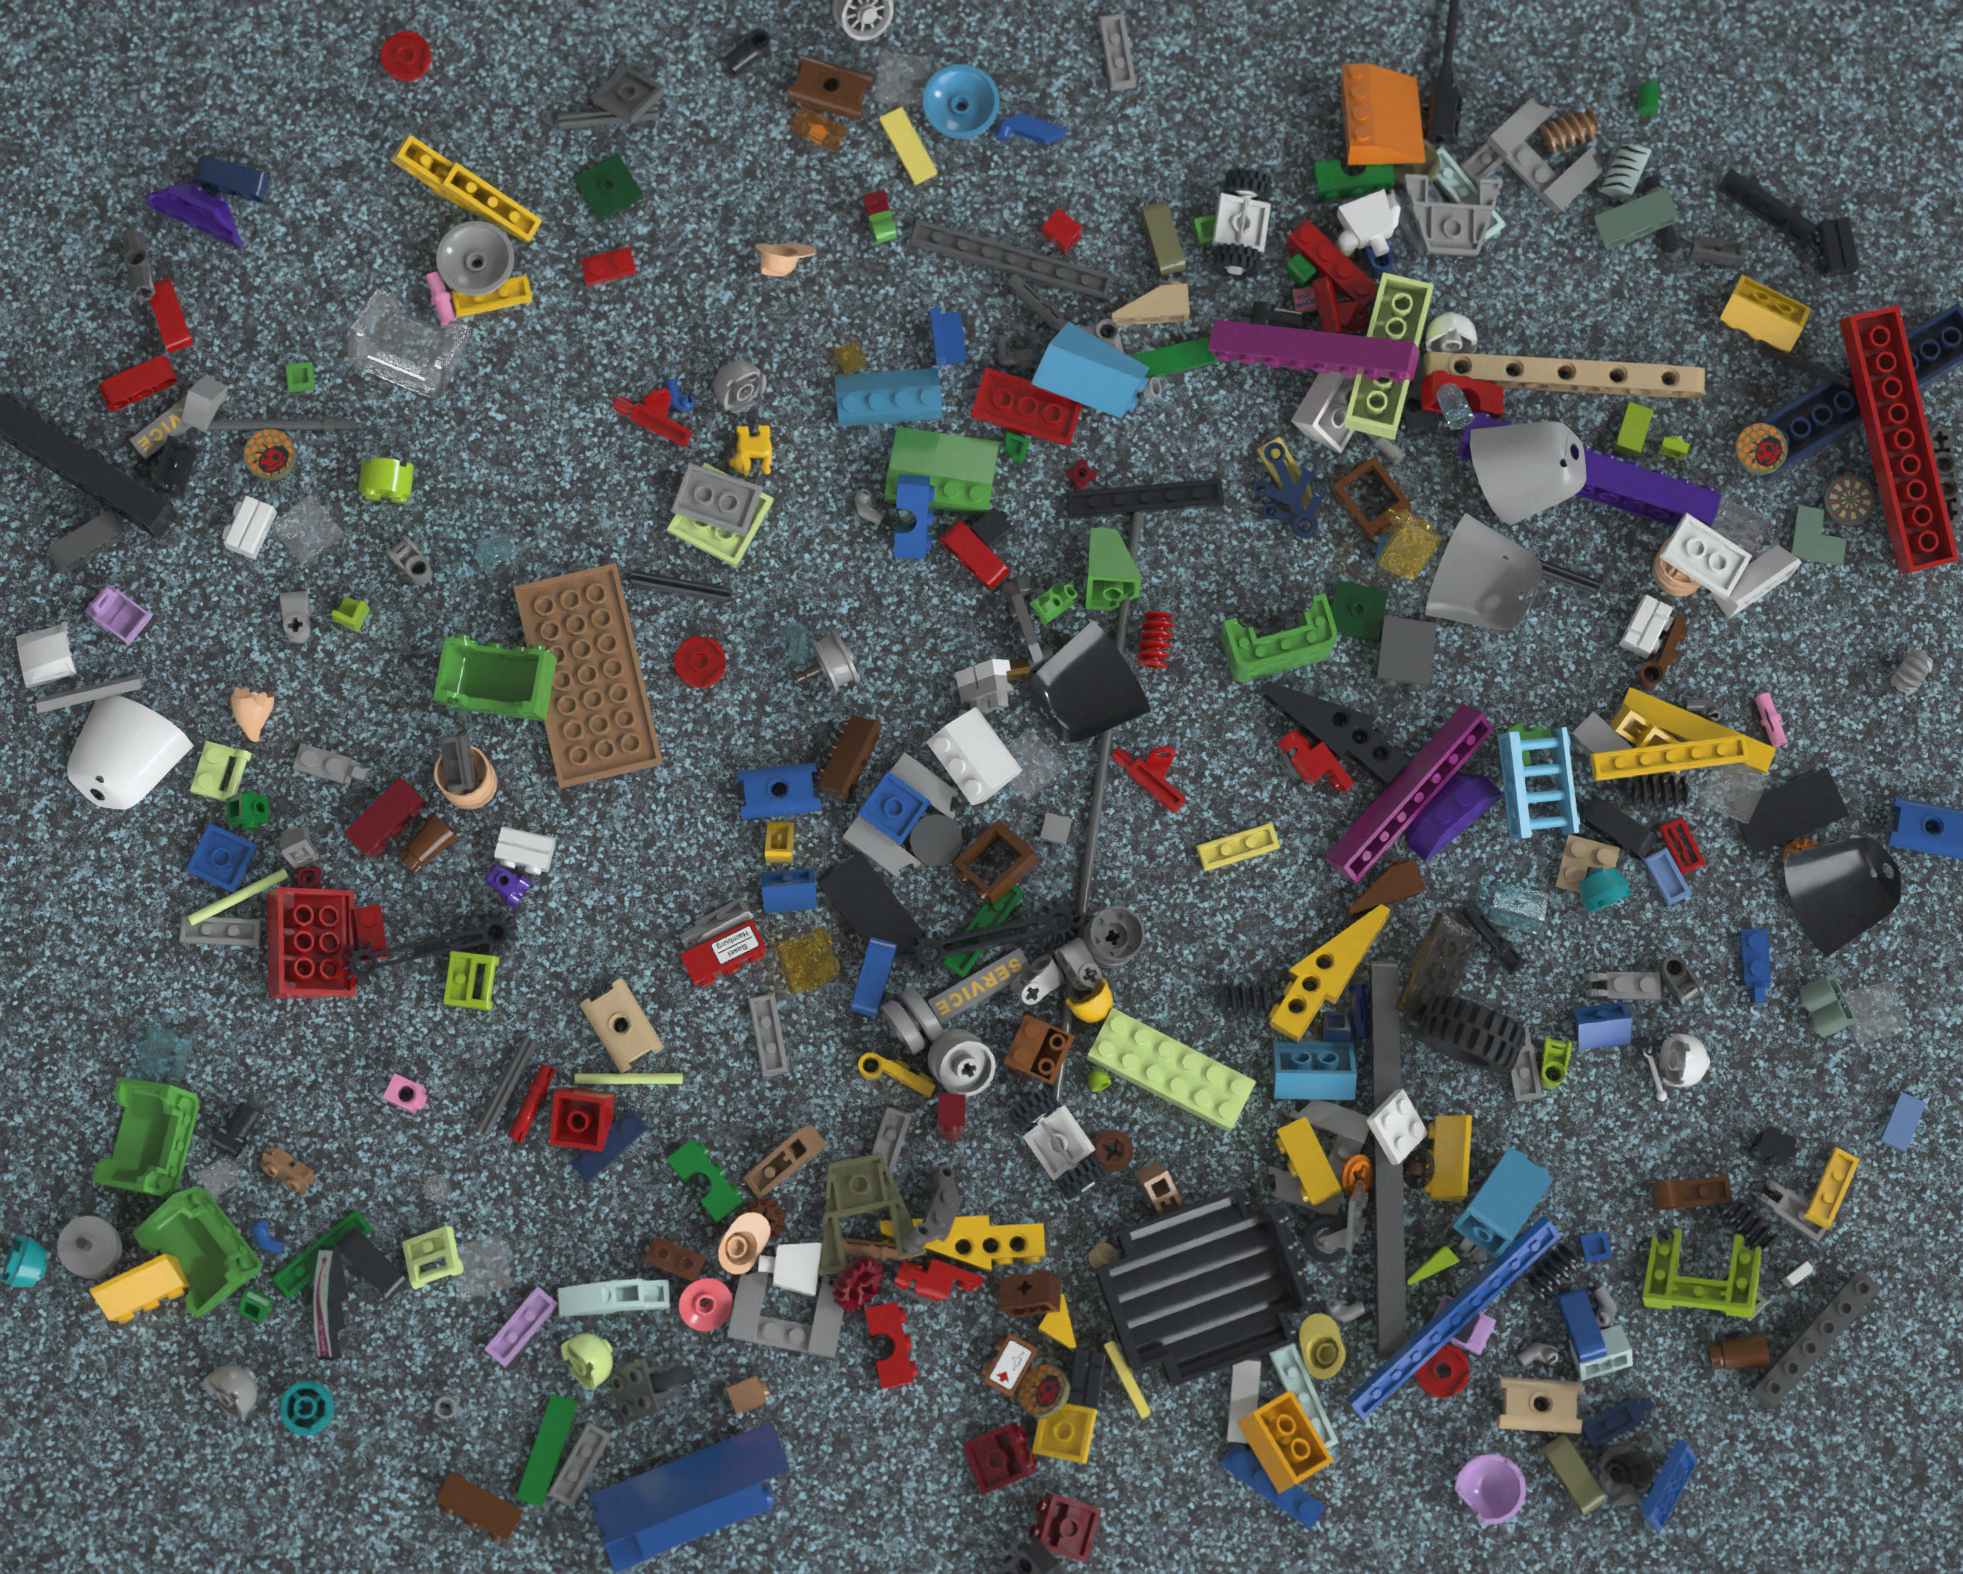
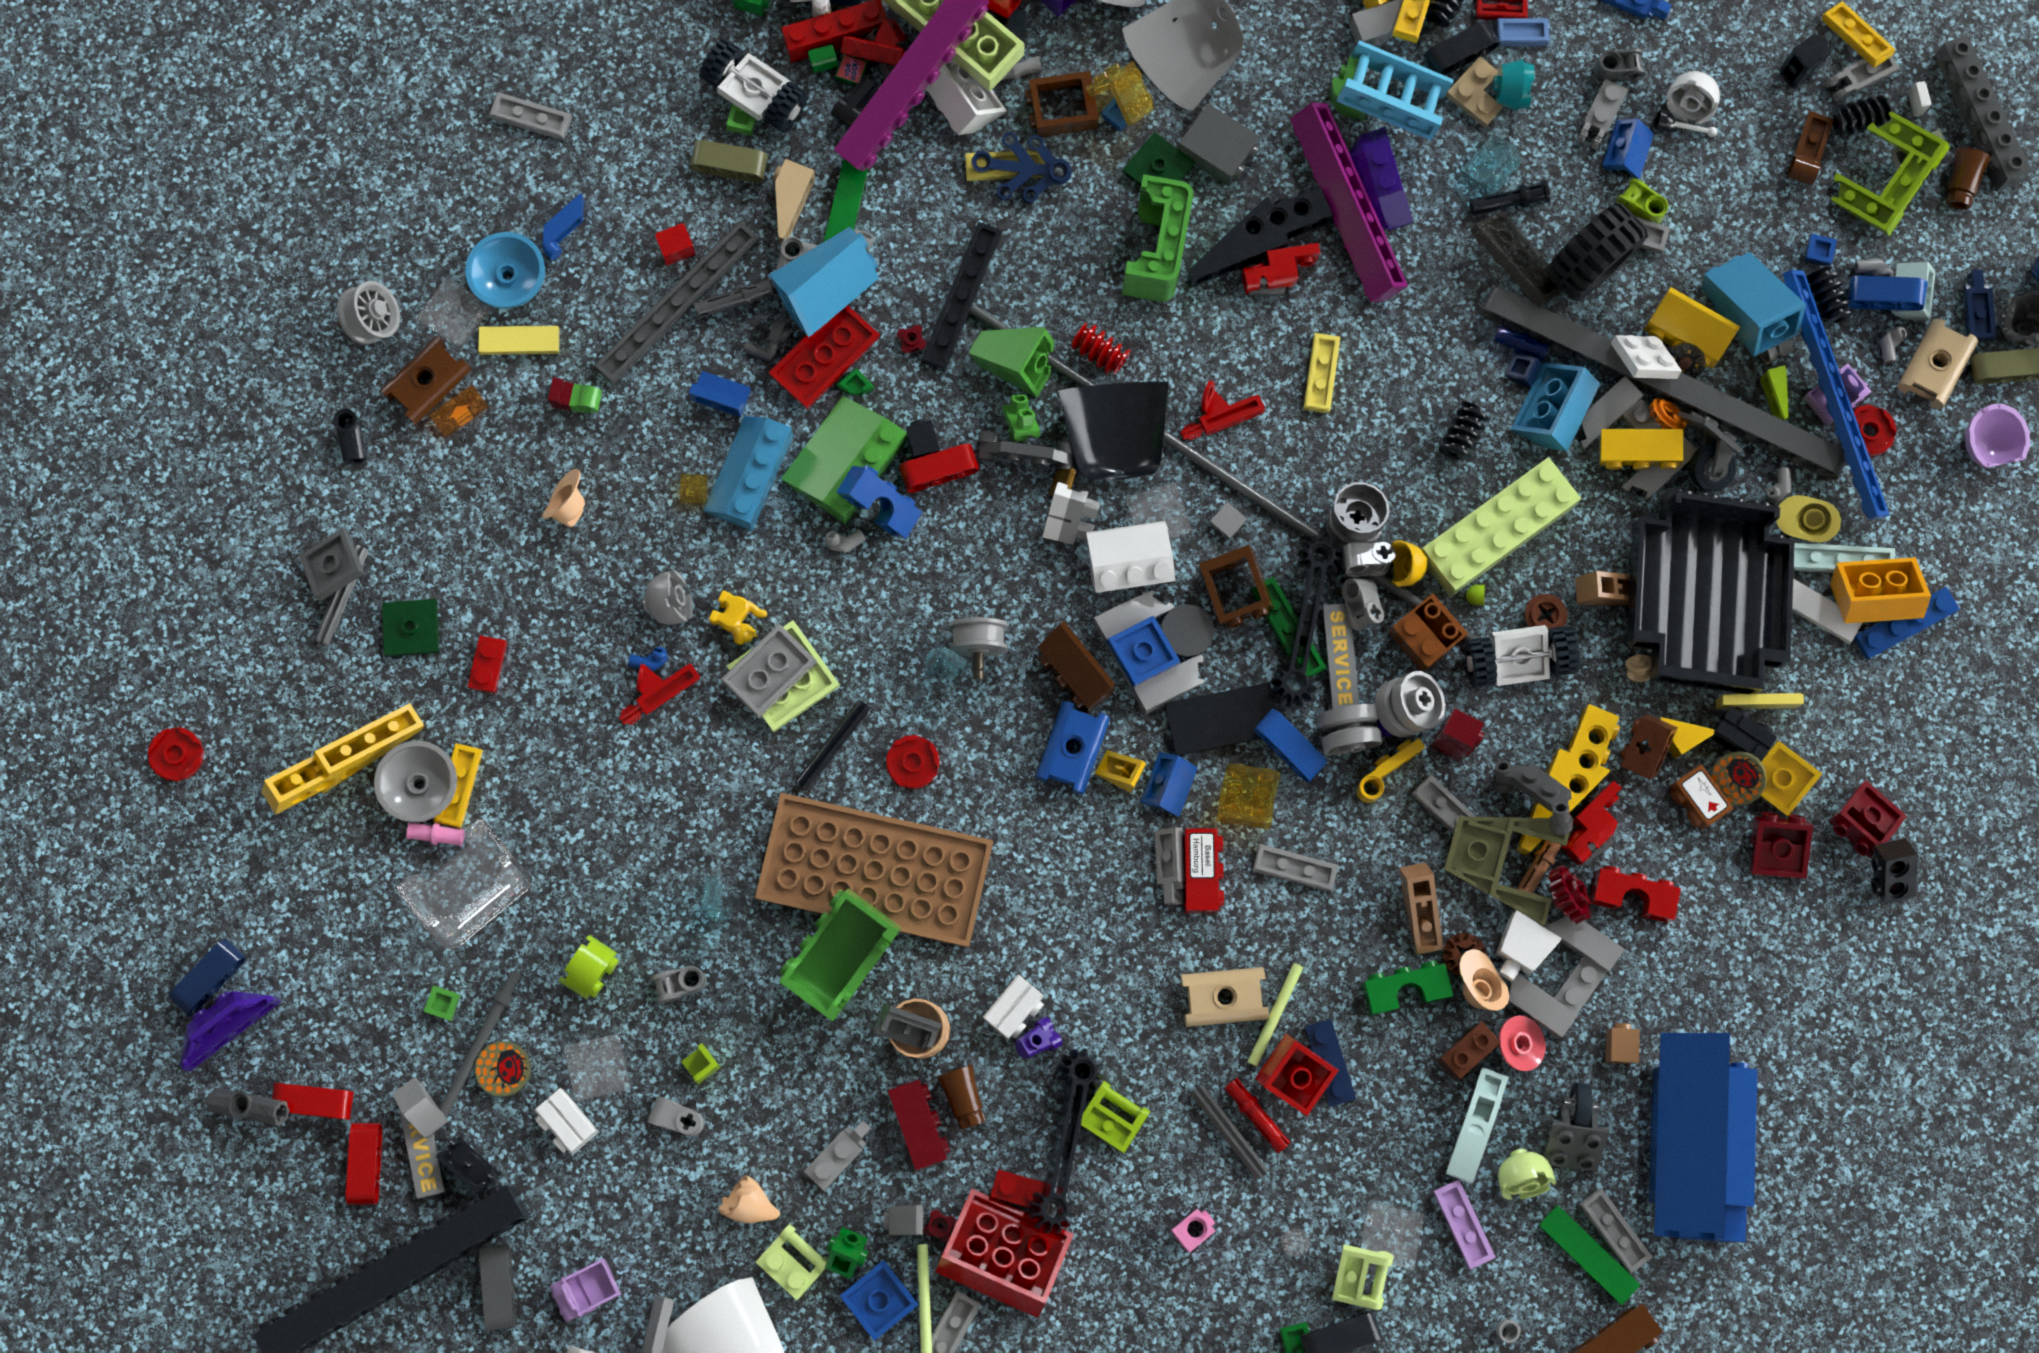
camera: 65 degrees left, 0 degrees up
(1344, 955) = (1468, 330): yellow brick -> none
(1395, 885) = (1422, 259): reddish brown slope -> none

